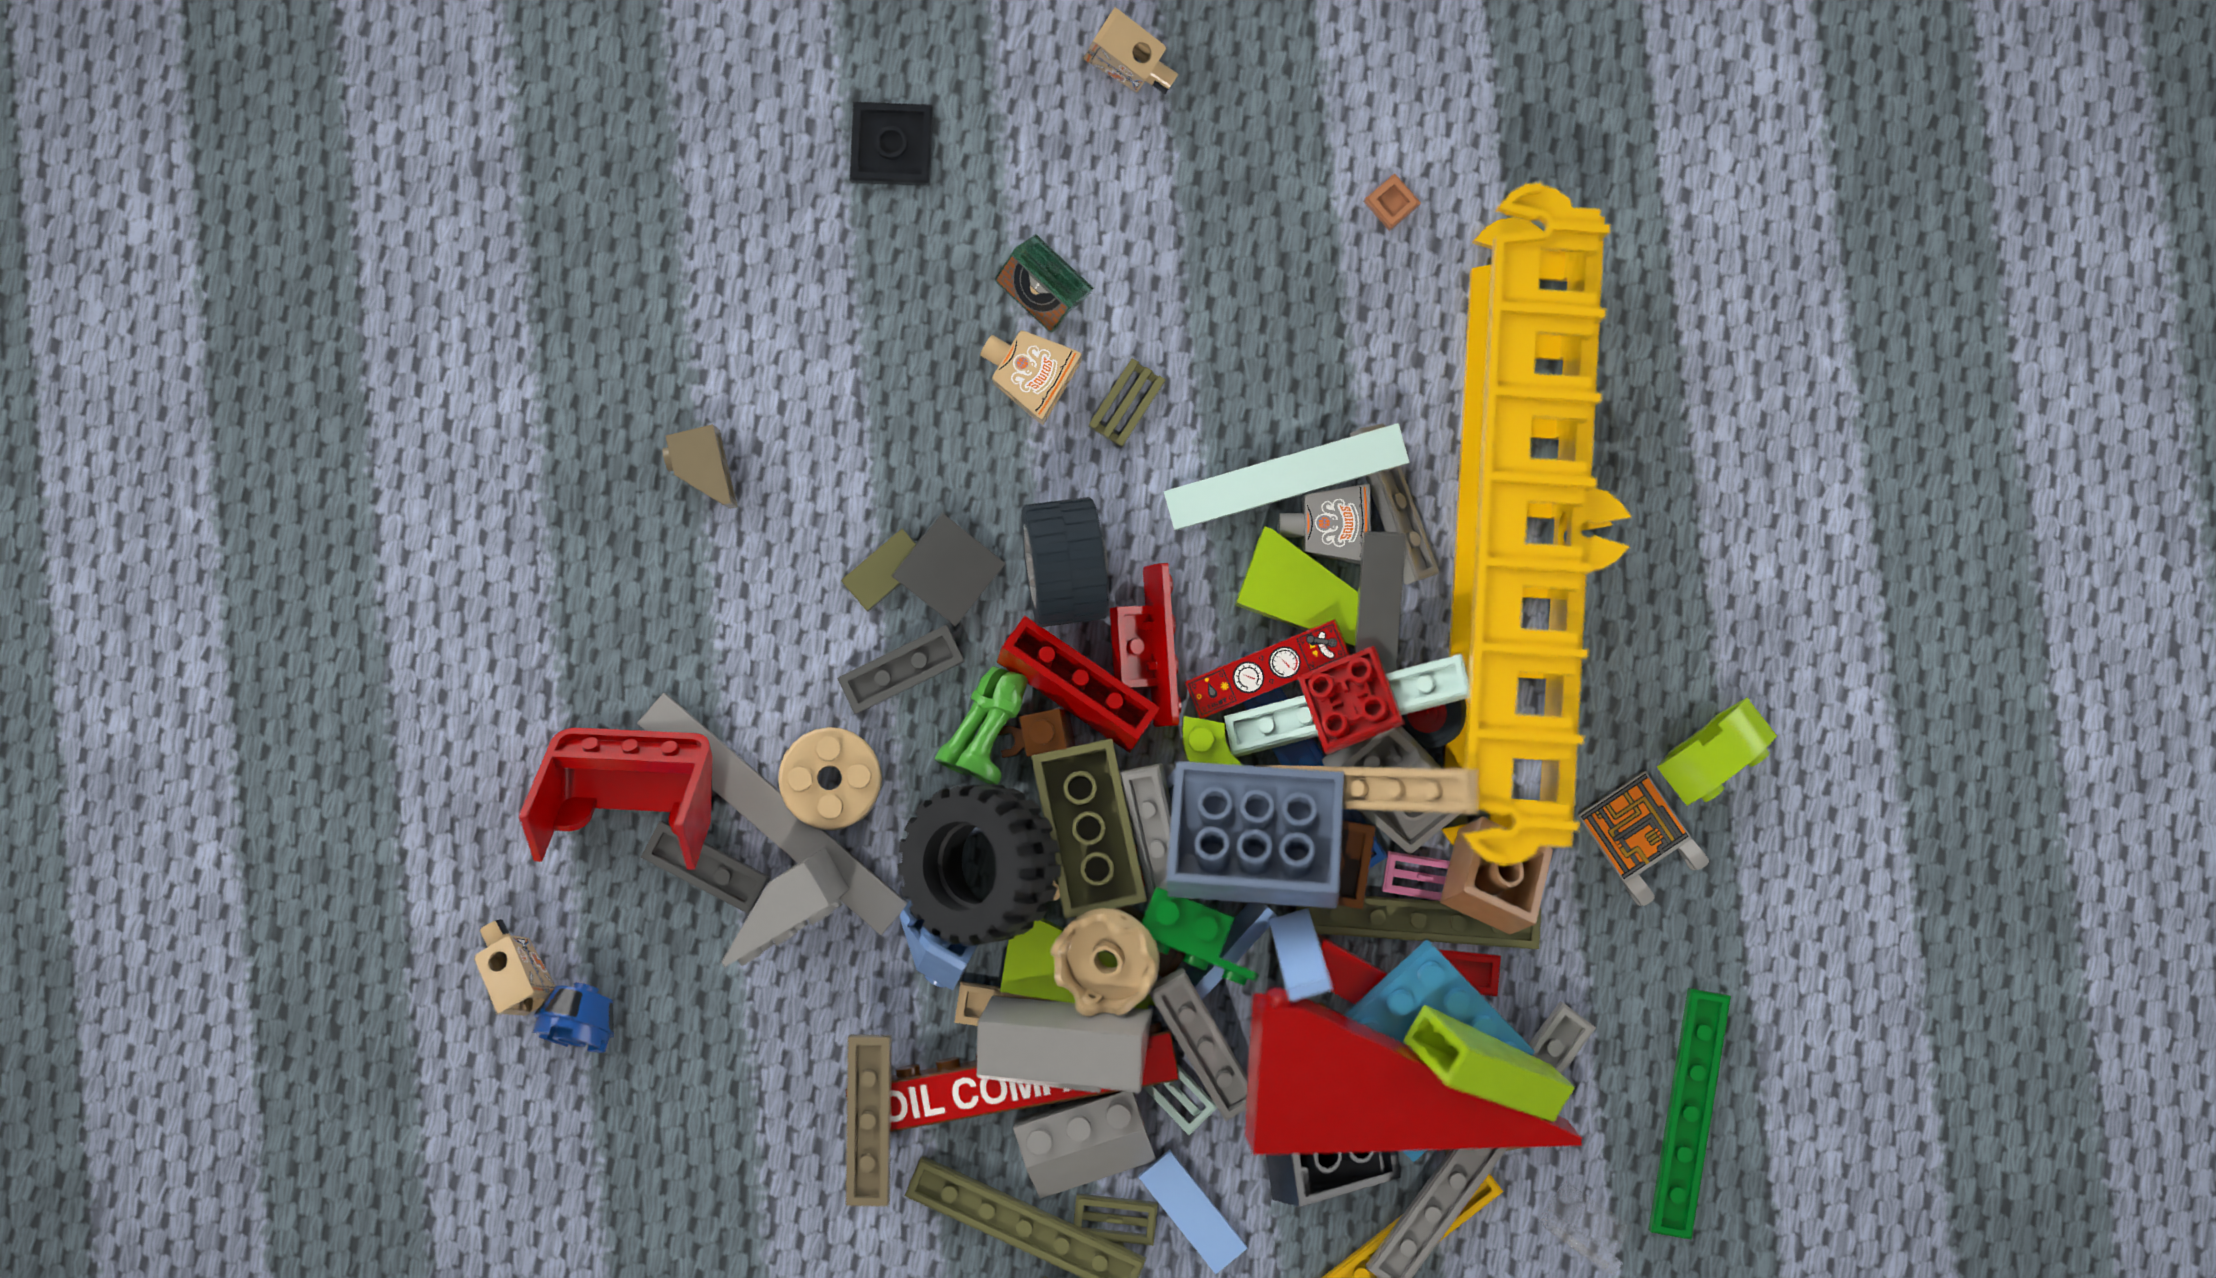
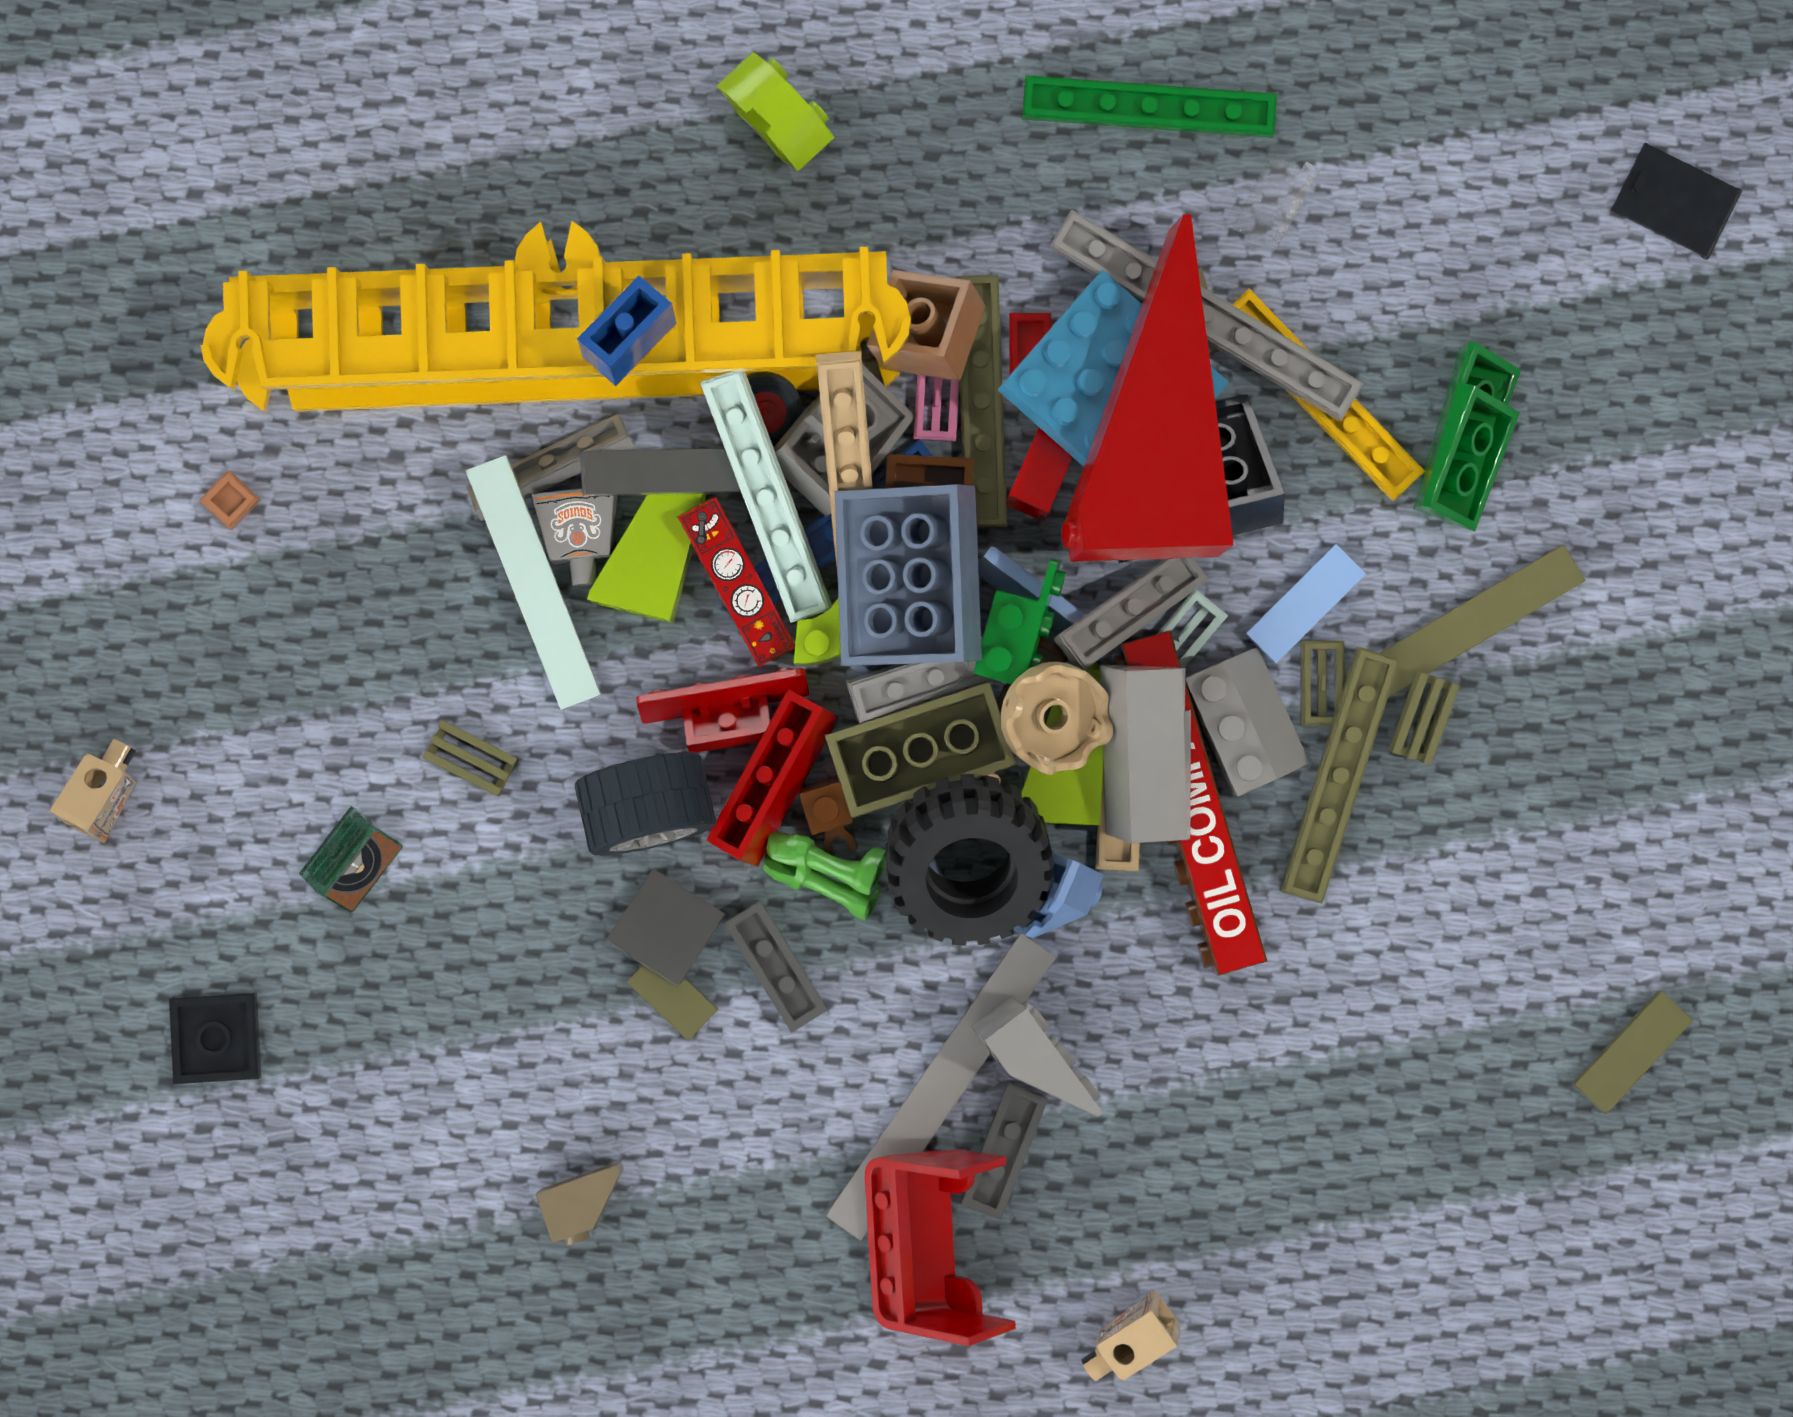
camera: 95 degrees left, 0 degrees up
(576, 1017) = (1175, 1266): blue cone -> none
(836, 807) = (928, 1028): tan plate -> none
(868, 1120) = (1245, 946): dark tan plate -> none
(1032, 371) = (446, 861): tan torso -> none
(1299, 954) = (1026, 517): light blue tile -> none
(1350, 700) = (759, 491): red tile -> none
(1487, 1065) = (1119, 316): lime slope -> none
(1517, 589) = (627, 330): none -> blue brick
(1636, 831) = (866, 186): flag -> none

